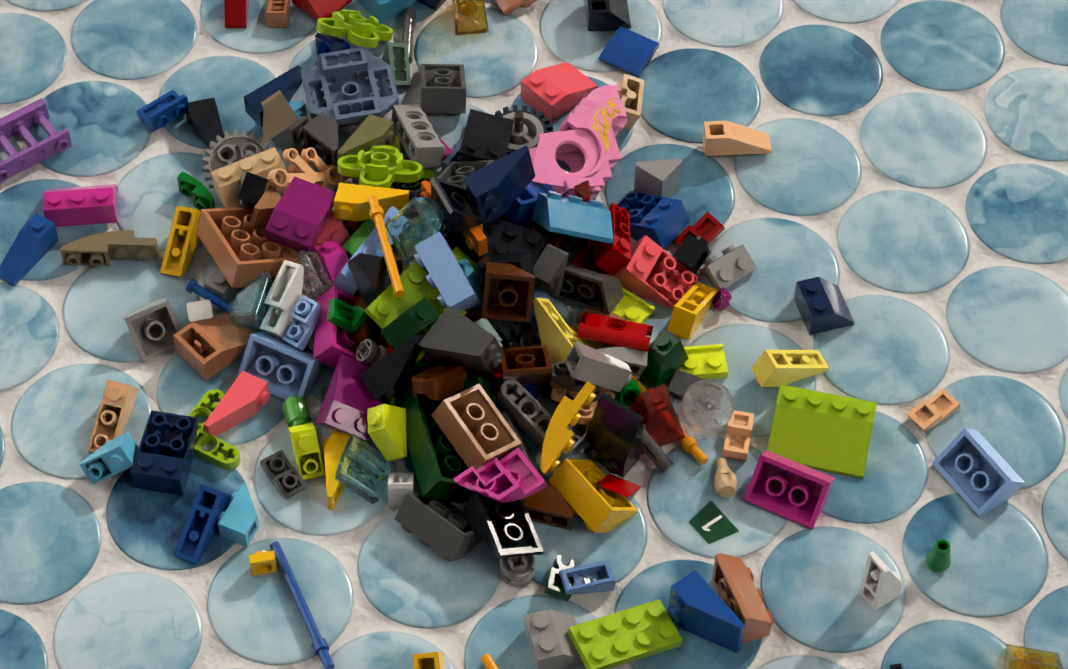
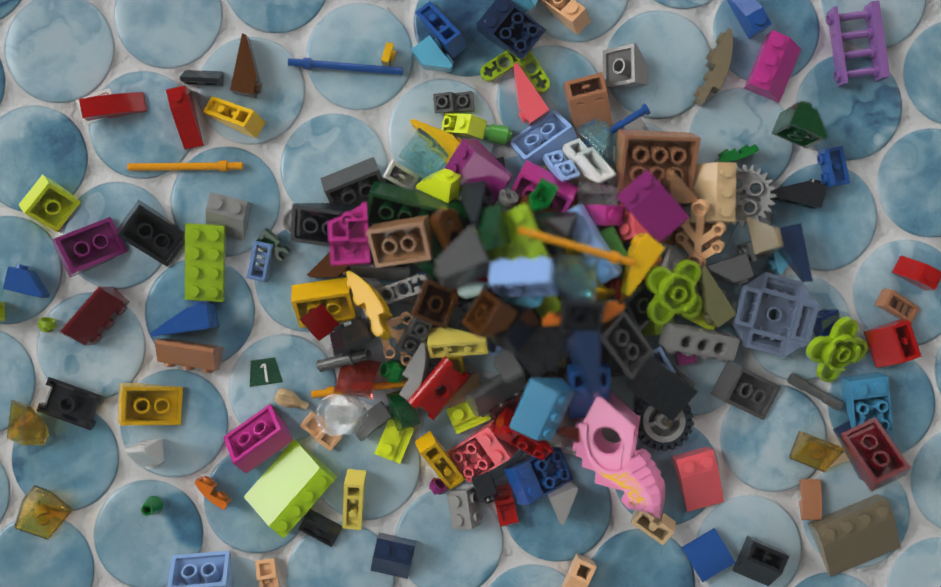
camera: 120 degrees right, 35 degrees up
(136, 144) = (800, 125): none -> dark green slope
(182, 242) = (695, 122): yellow slope -> none
(199, 310) = (619, 103): white slope -> none
(250, 189) = (702, 184): black brick -> none
(398, 58) = (787, 366): sand green slope -> none
(597, 367) = (403, 350): light grey slope -> none
(829, 618) = (149, 404): none -> yellow slope
(843, 381) = (320, 527): none -> black slope
(877, 510) = (207, 487): none -> orange slope

